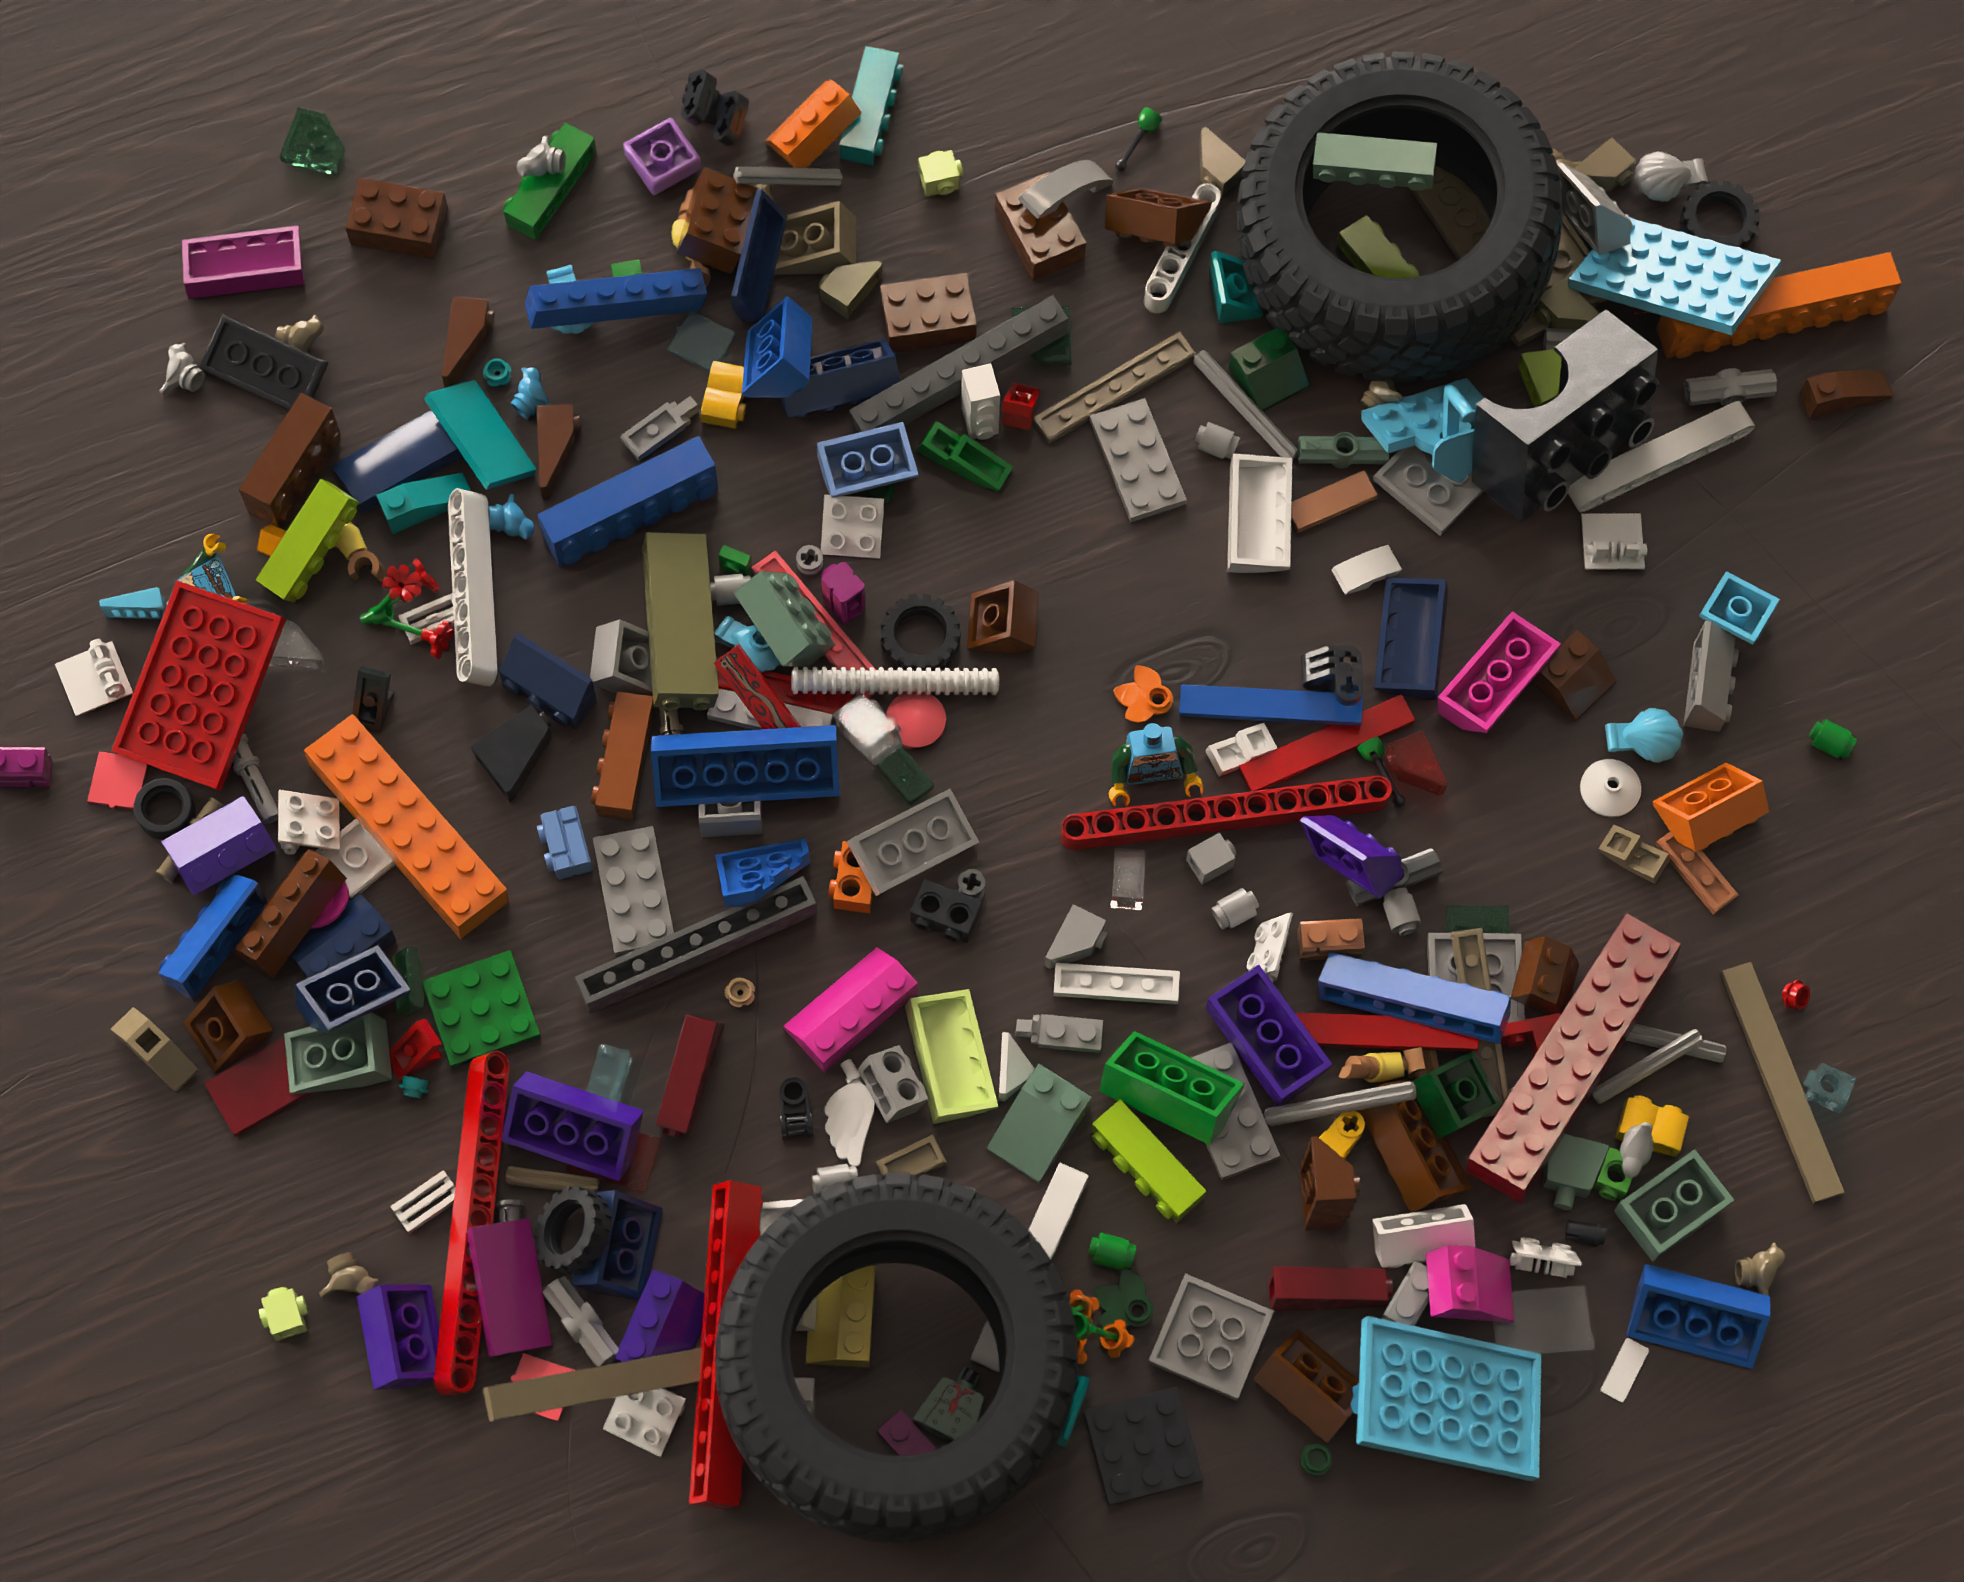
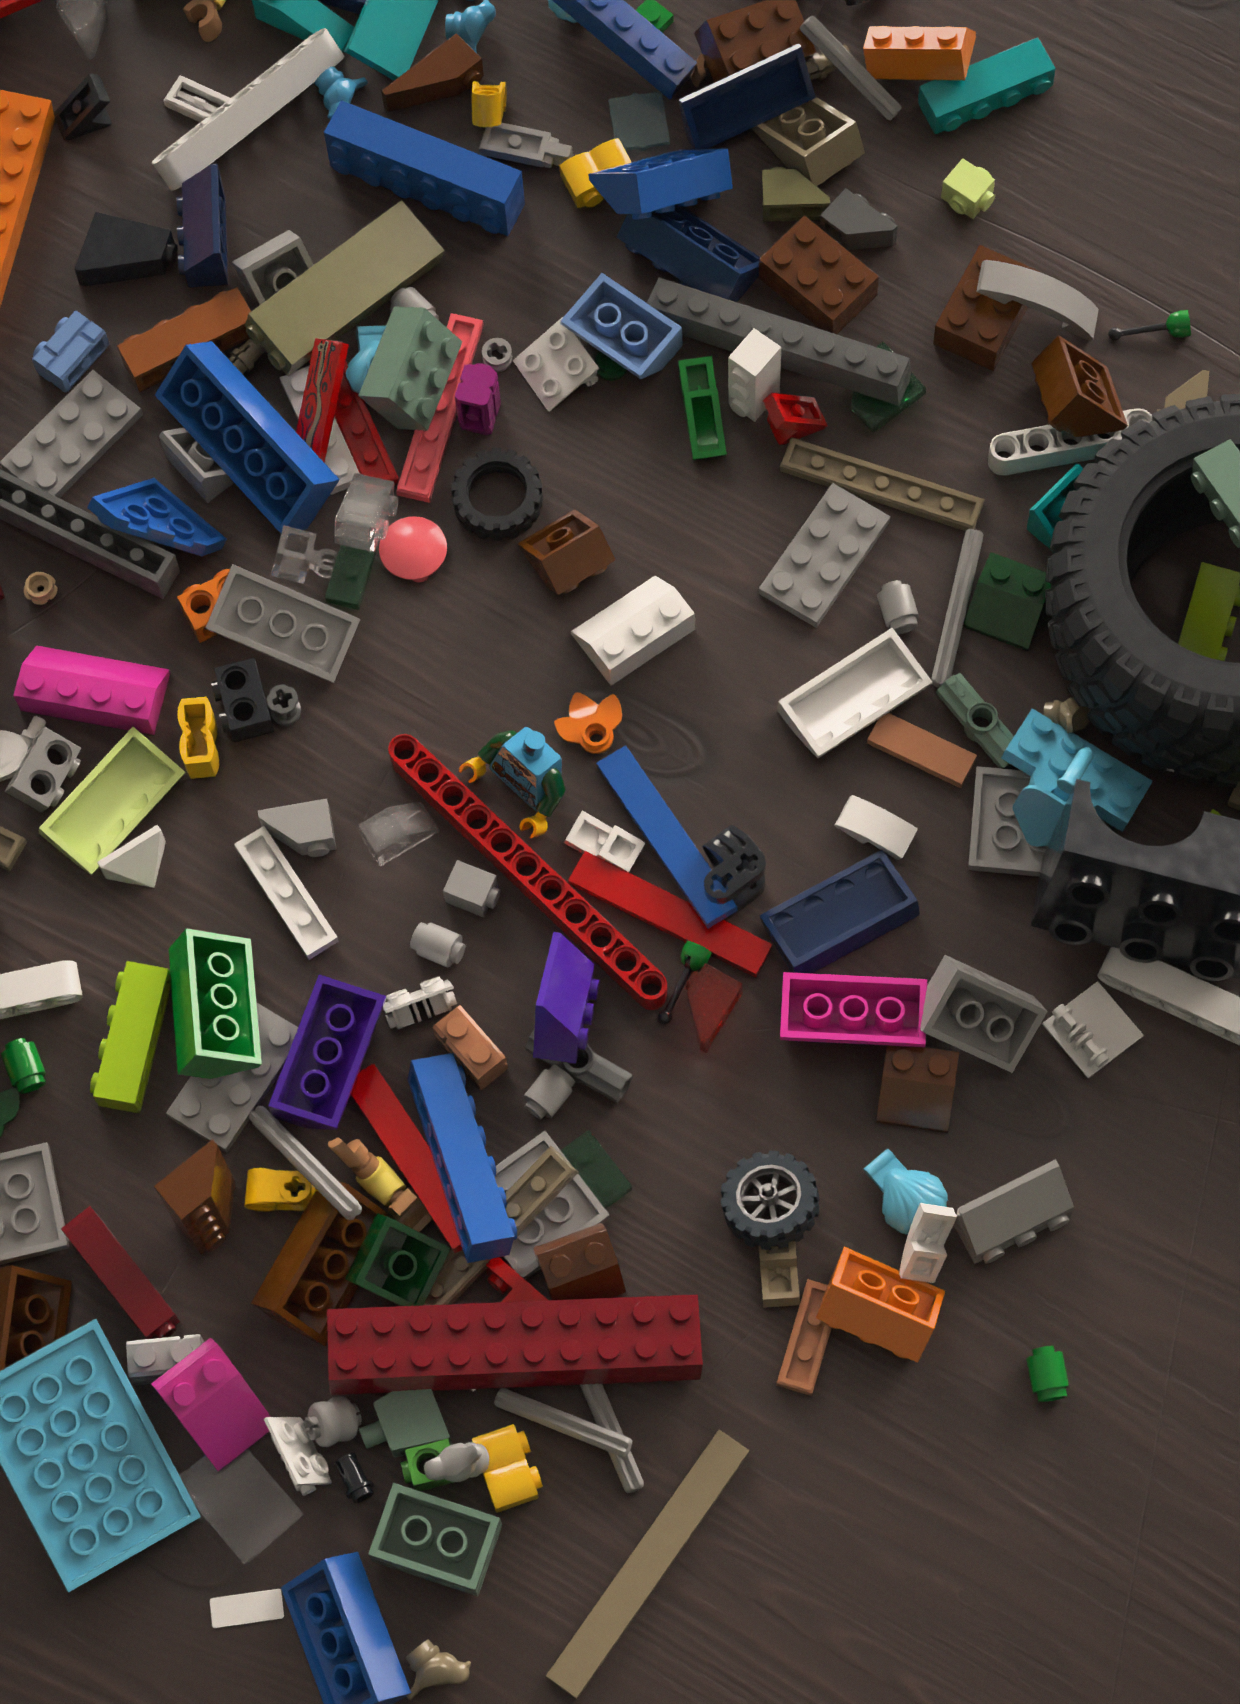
camera: 60 degrees right, 0 degrees up
(403, 588) = (179, 43): red plant -> none
(608, 426) = (488, 104): none -> yellow piece
(734, 561) = (441, 294): green plate -> none
(864, 797) = (297, 555): none -> clear brick
(895, 681) = (430, 502): white piece -> none
(907, 258) = (857, 224): none -> dark grey slope
(946, 956) = (198, 737): none -> yellow brick
(1039, 1123) = (102, 919): sand green slope -> none
(1062, 1032) = (206, 881): light grey hinge -> none
(1095, 616) = (635, 628): none -> white slope
(1412, 1235) = (237, 1326): white brick -> none
(1538, 1216) = (332, 1421): none -> light grey piece
(1560, 596) = (980, 1014): none -> light grey slope
(1597, 849) = (776, 1230): none -> black wheel
(1608, 800) = (851, 1209): white dish -> none
(1692, 751) = (925, 1243): none -> white slope
(1740, 608) = (1104, 1190): medium azure slope -> none
(1796, 995) = (747, 1517): red plate -> none
(1841, 1082) = (673, 1627): clear light blue brick -> none

